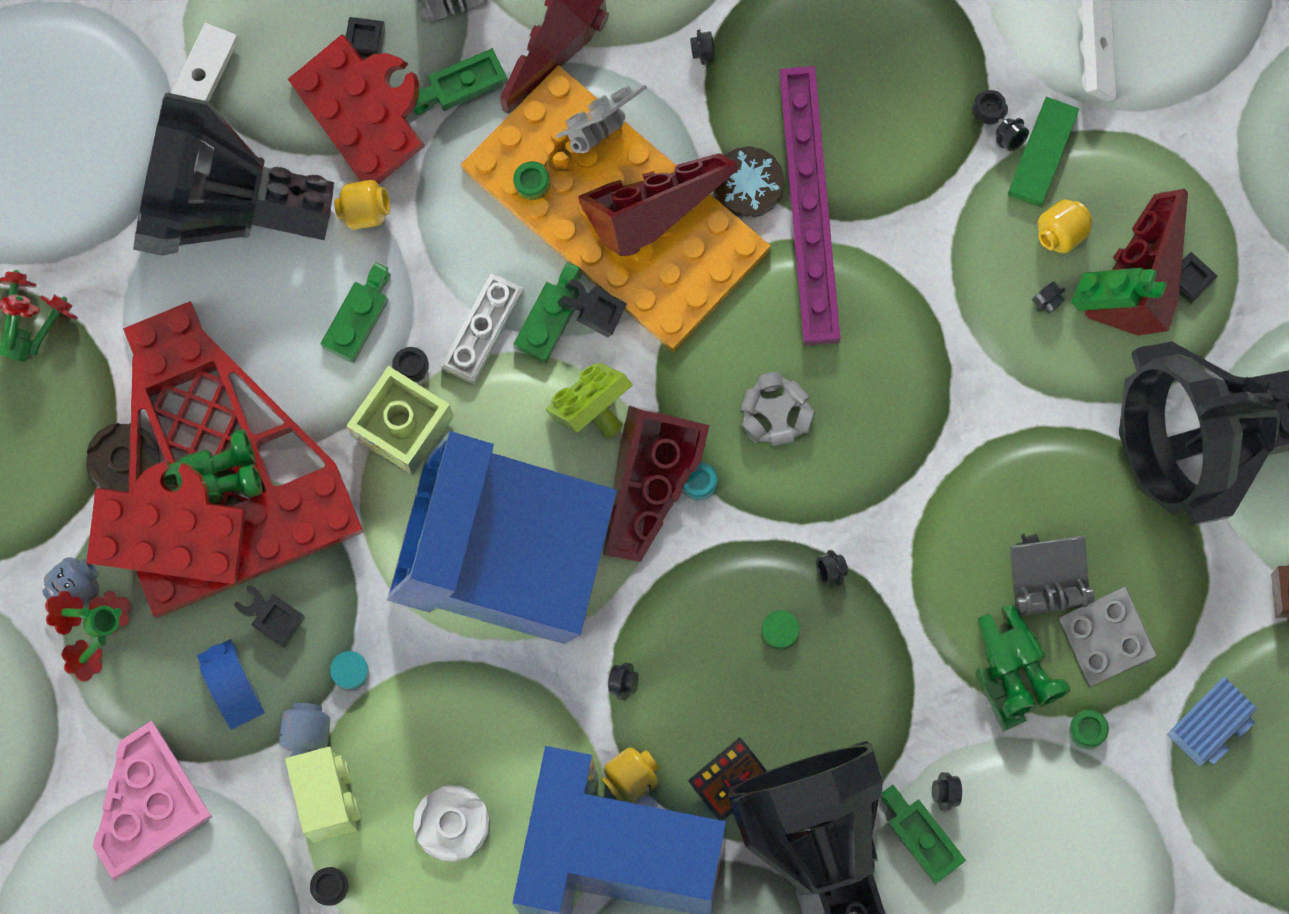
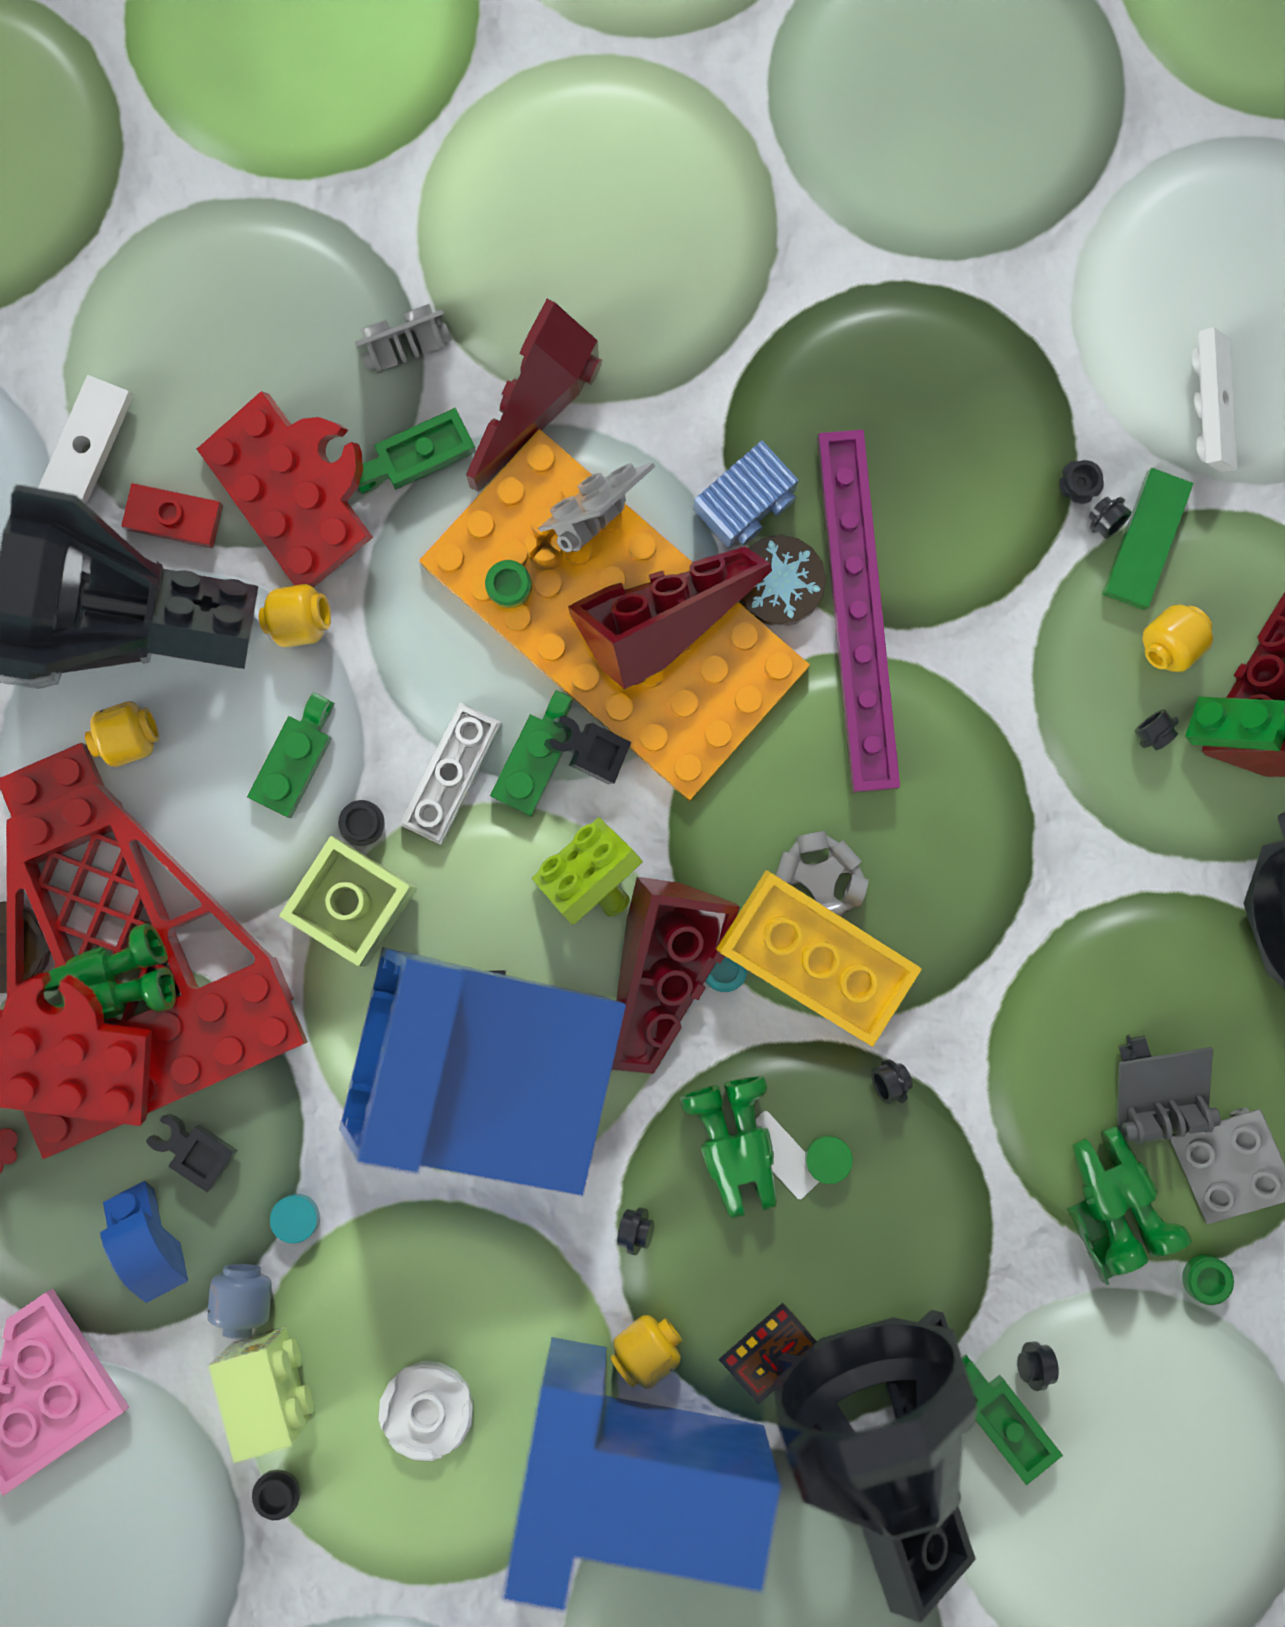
camera: 10 degrees left, 10 degrees up
(223, 294) = (122, 734): none -> yellow head
(268, 129) = (172, 515): none -> red plate
(365, 35) = (294, 391): black tile -> none
(703, 46) = (721, 403): black plate -> none
(705, 623) = (740, 1157): none -> green piece
(721, 116) = (746, 496): none -> medium blue brick
(741, 627) = (788, 1158): none -> white sticker
(773, 468) = (818, 958): none -> yellow plate

